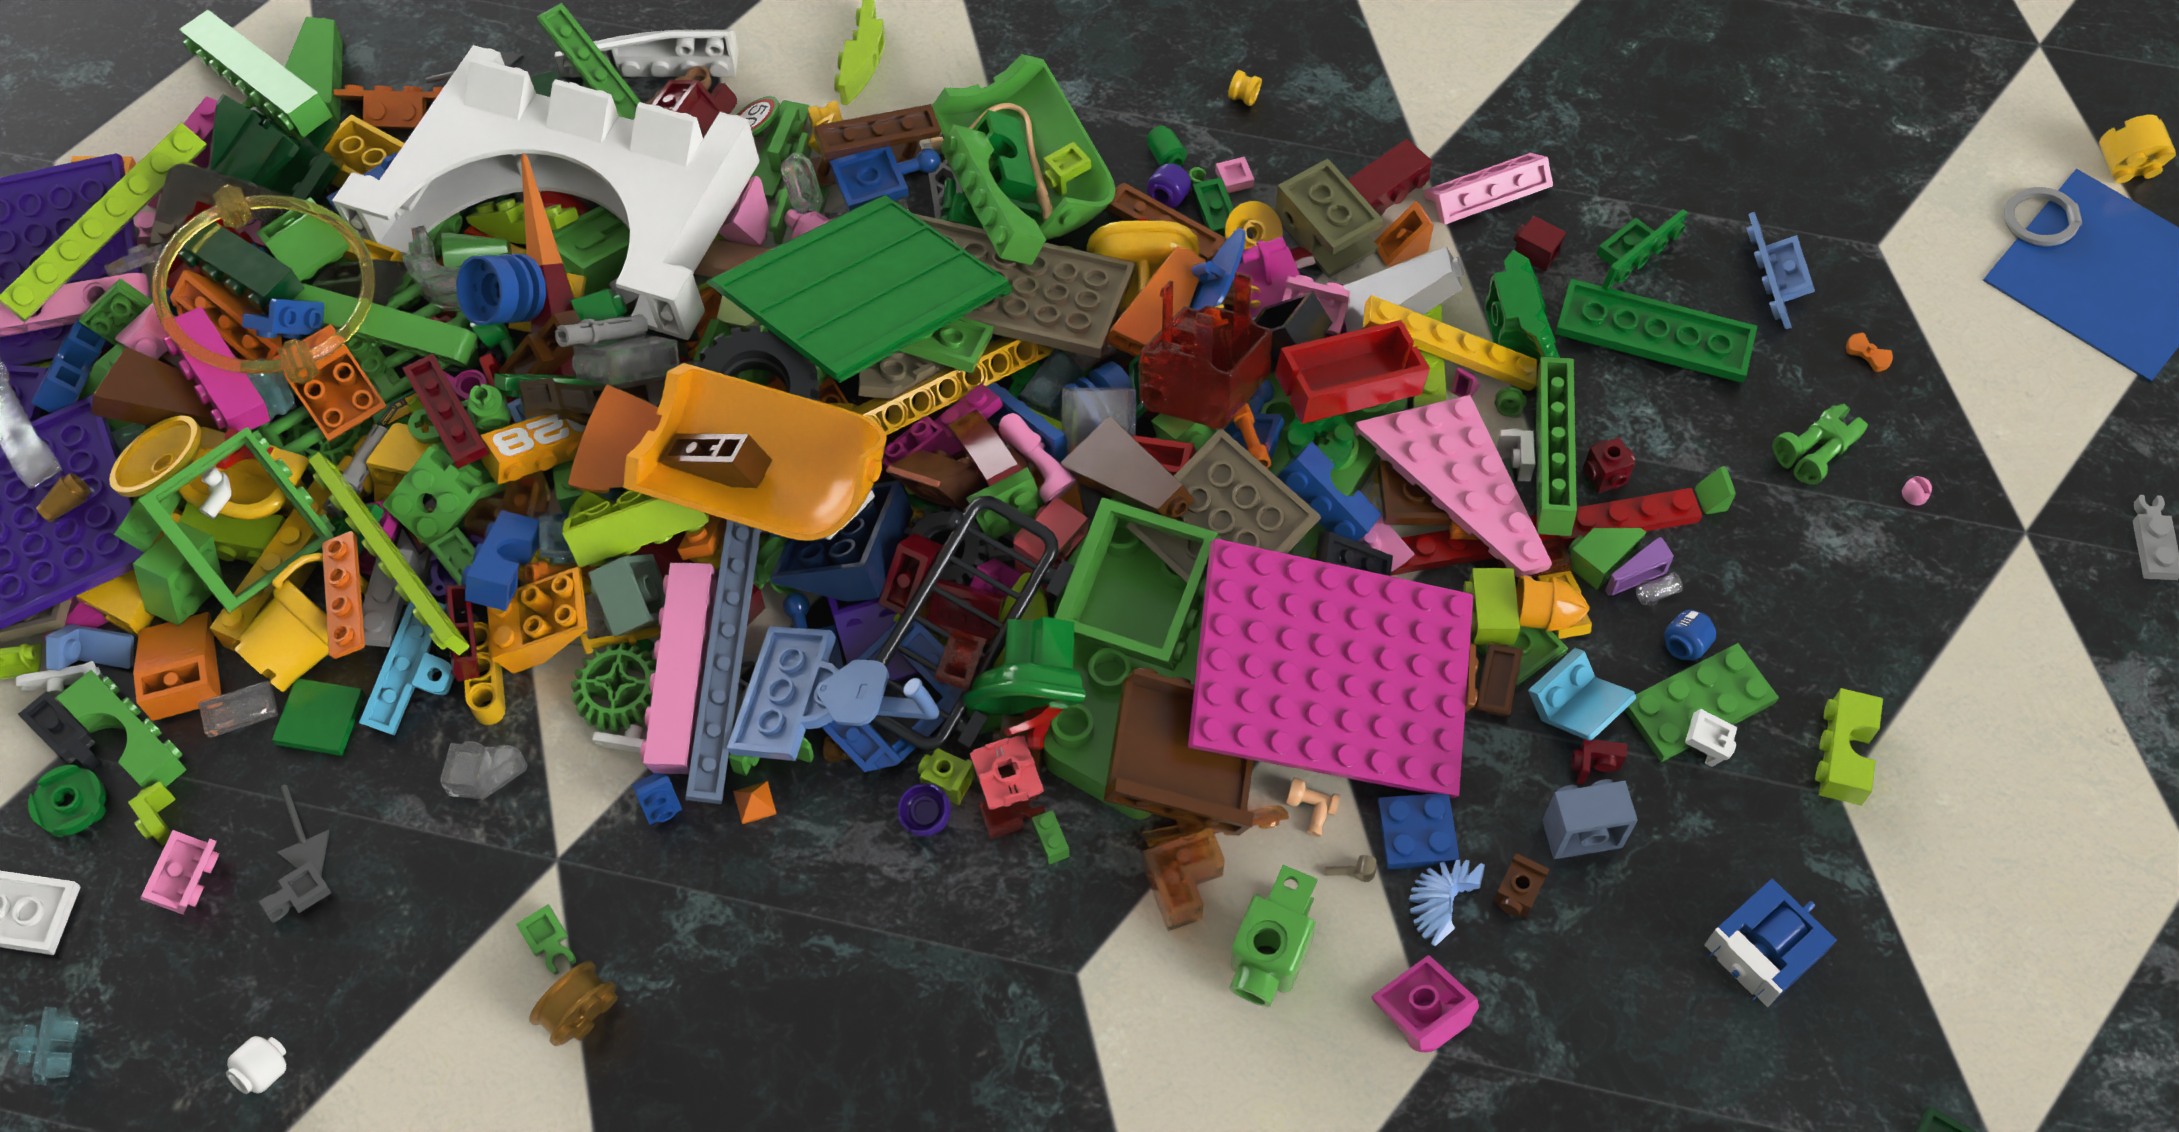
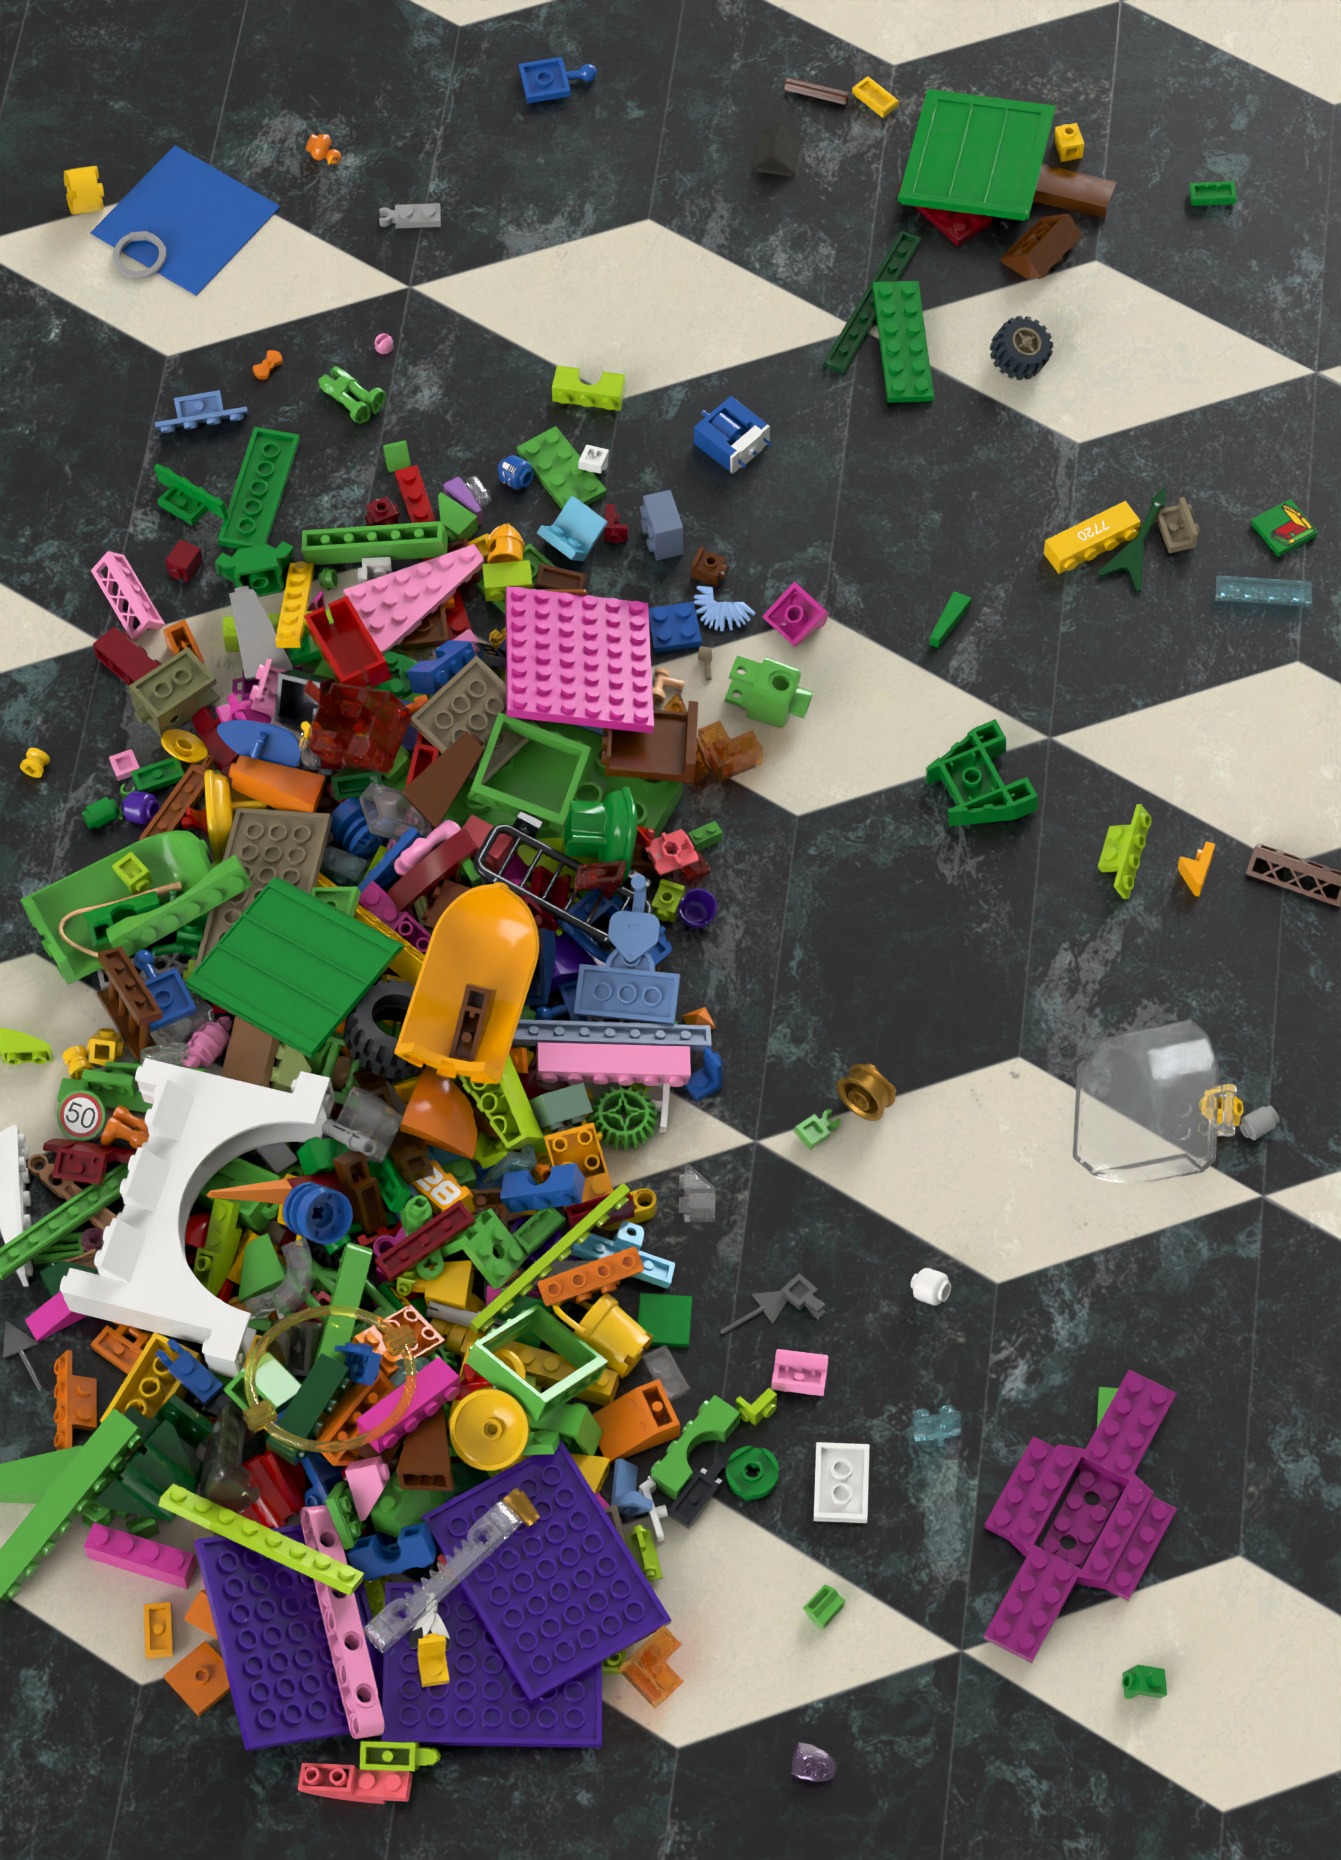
camera: 95 degrees left, 0 degrees up
(137, 257) = (288, 1513): clear plate -> none

